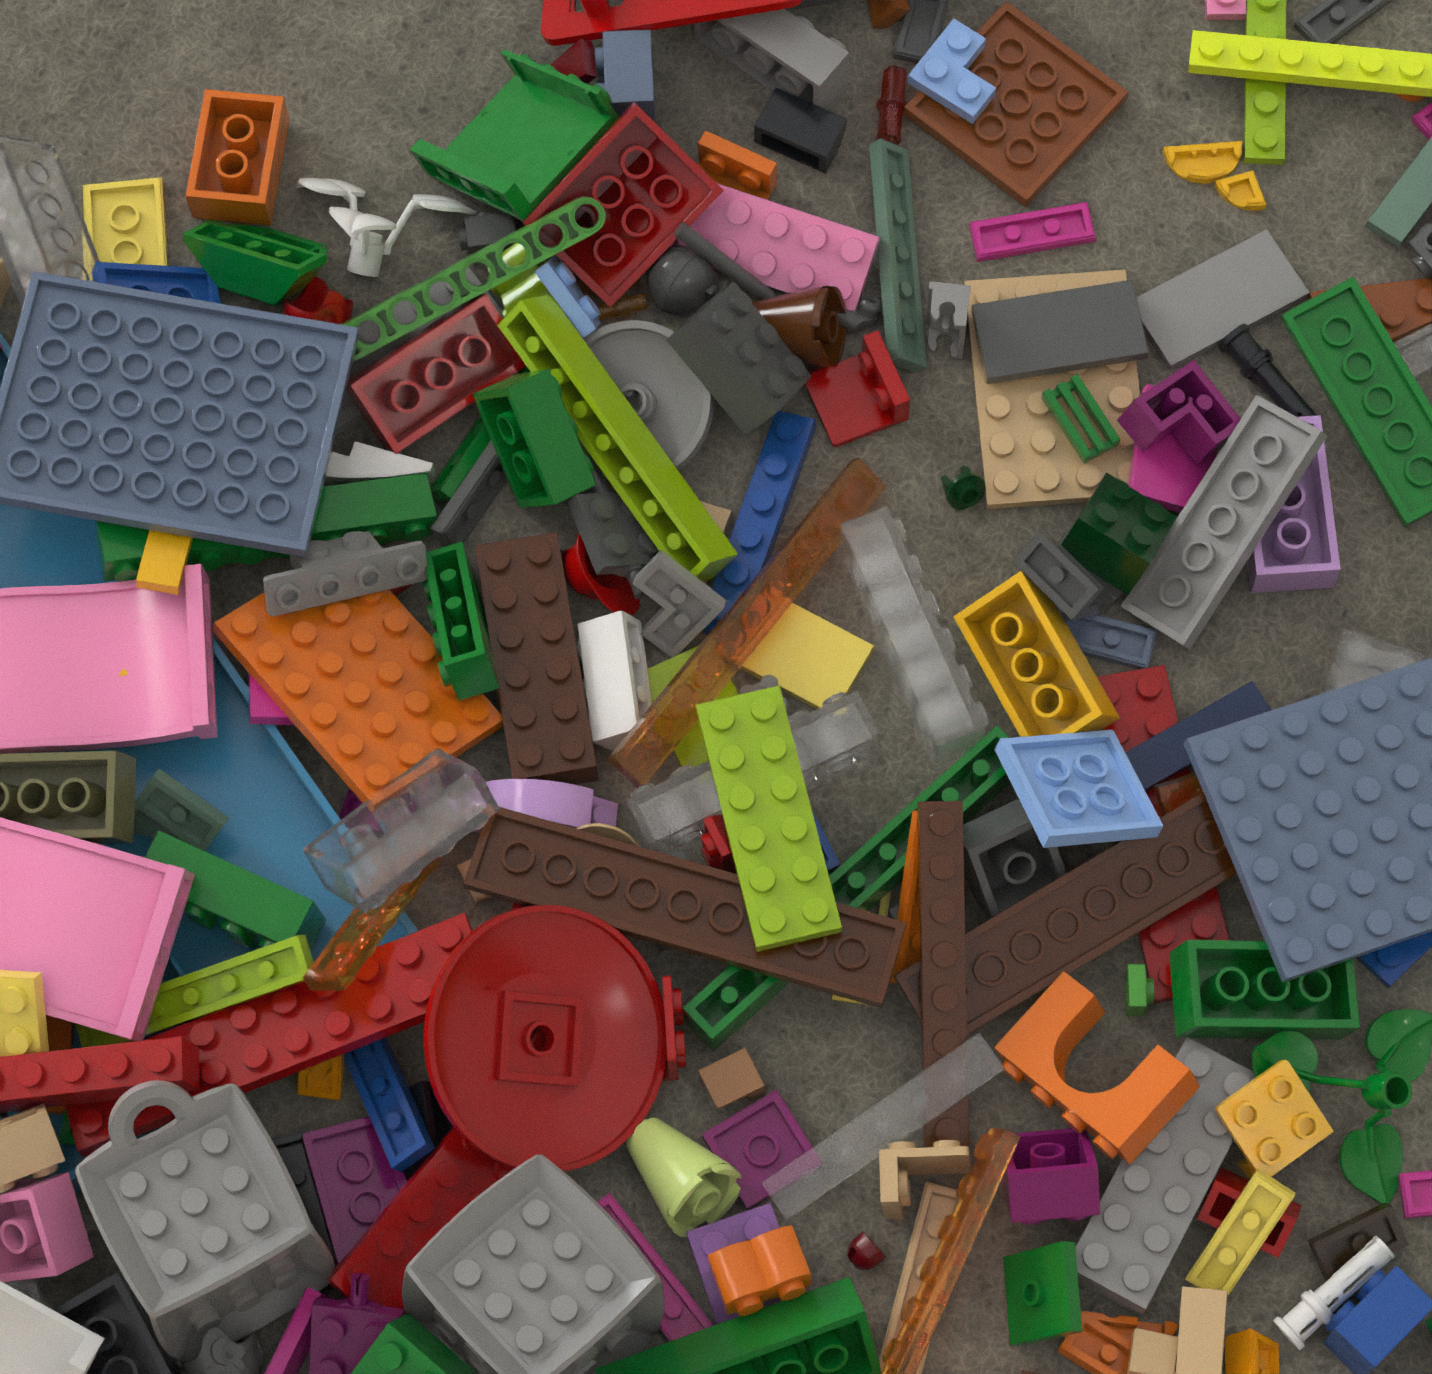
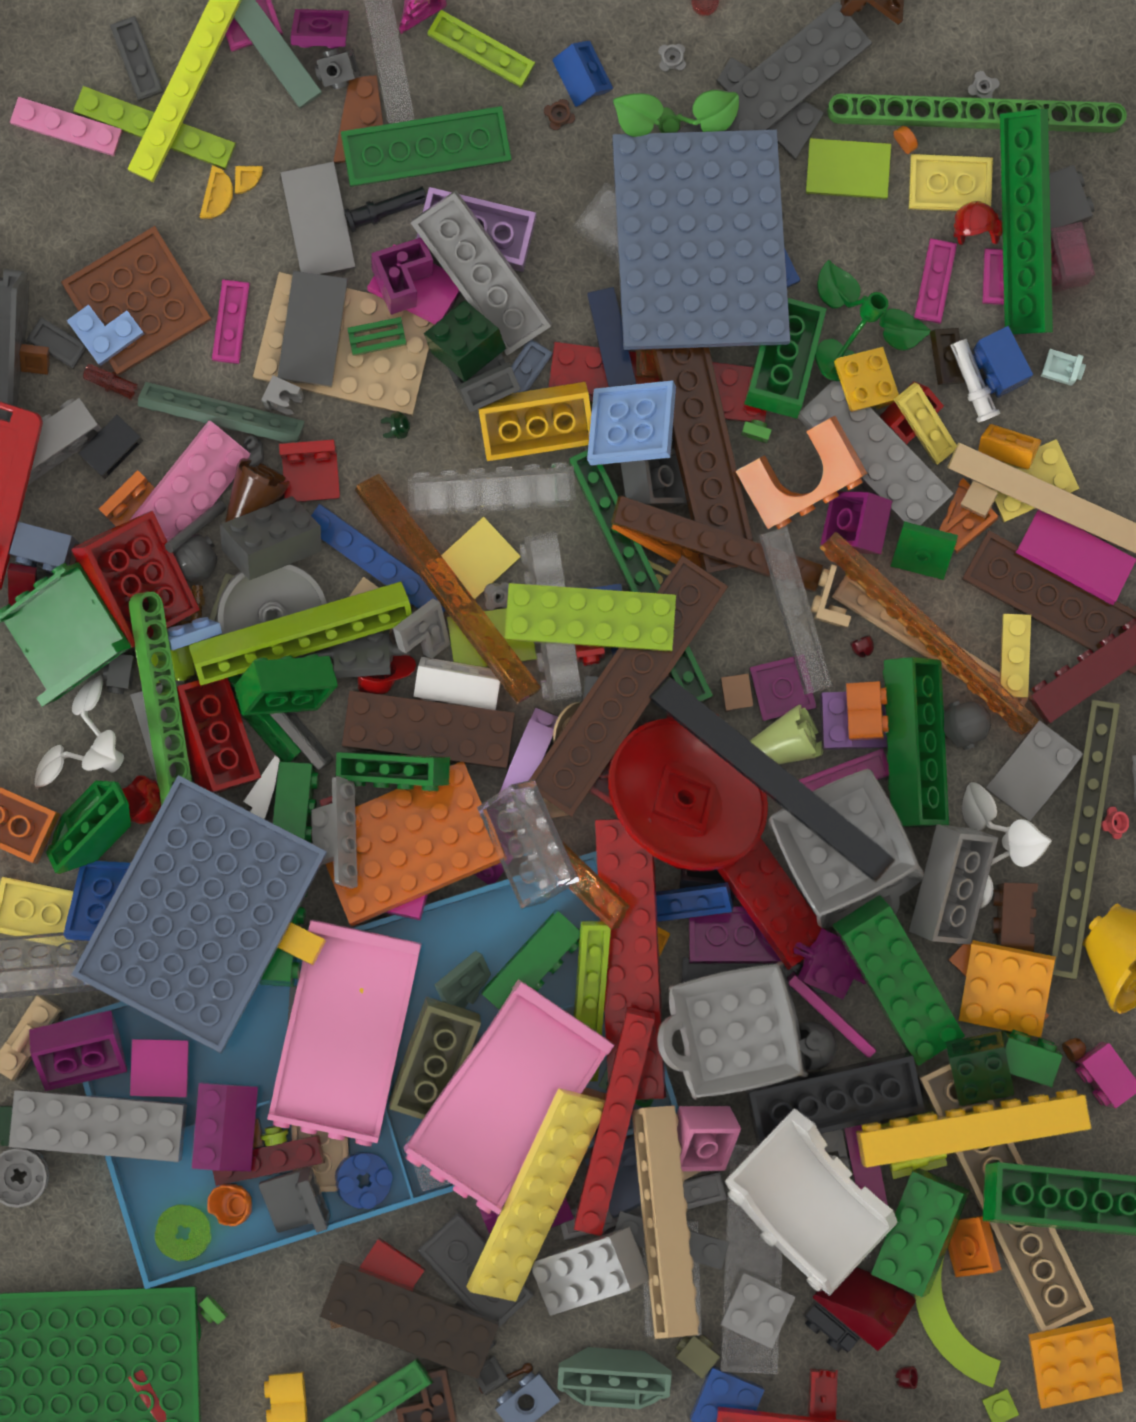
camera: 75 degrees left, 15 degrees up
(594, 1141) = (772, 779): none -> black beam

